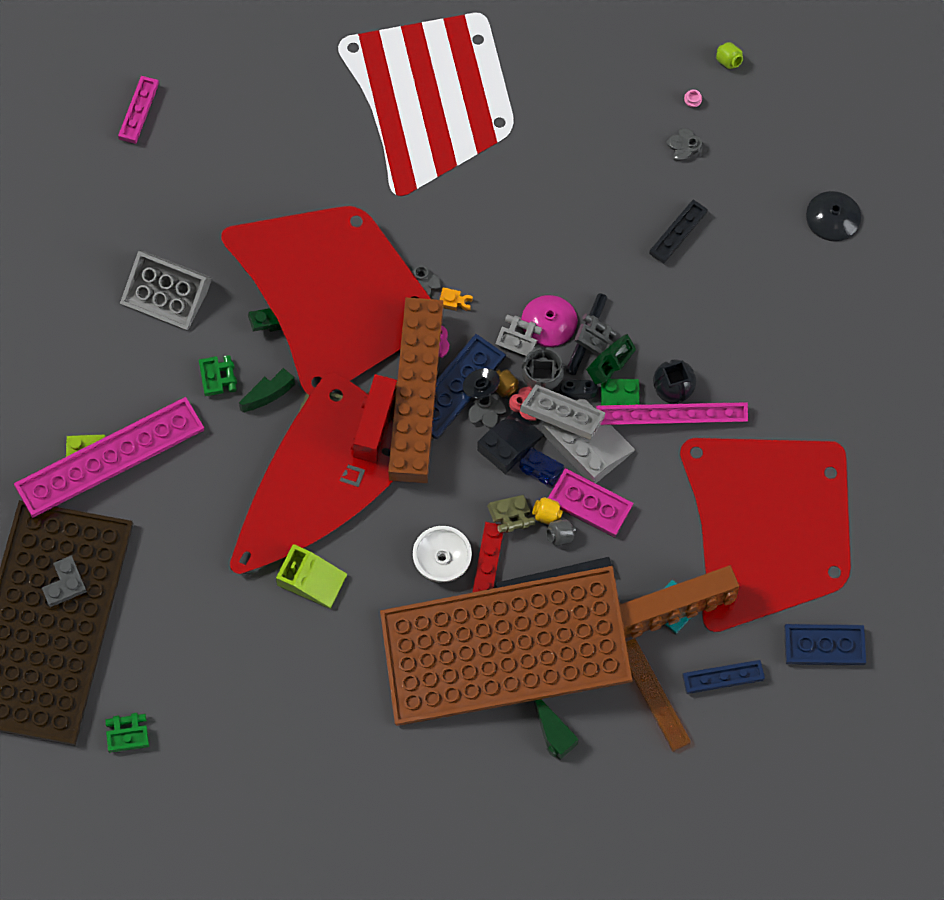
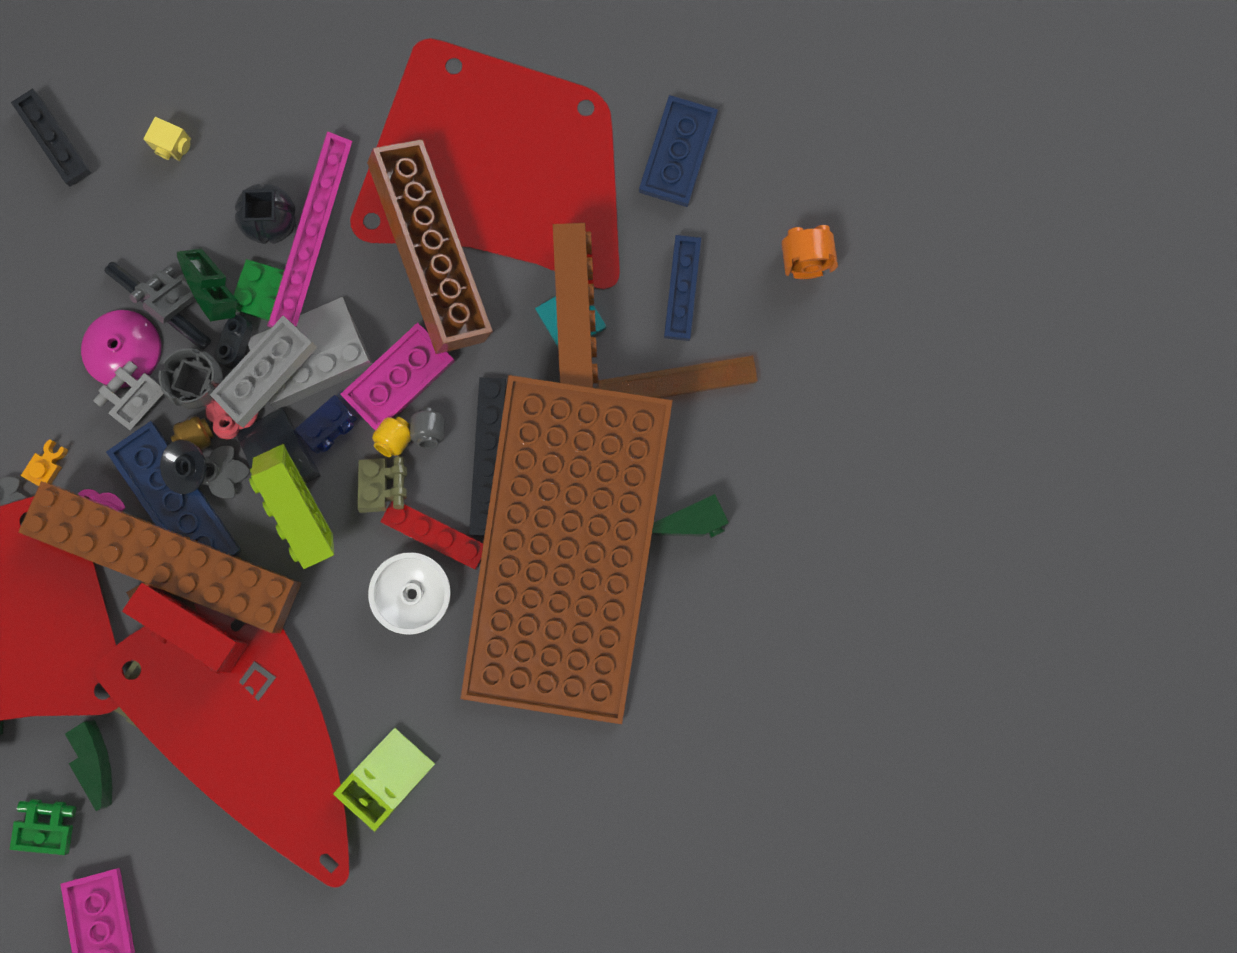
camera: 75 degrees left, 15 degrees up
(476, 458) = (292, 507): none -> lime brick
(688, 493) = (429, 246): none -> dark orange brick
(703, 303) = (167, 139): none -> light yellow brick
(780, 756) = (809, 252): none -> orange brick

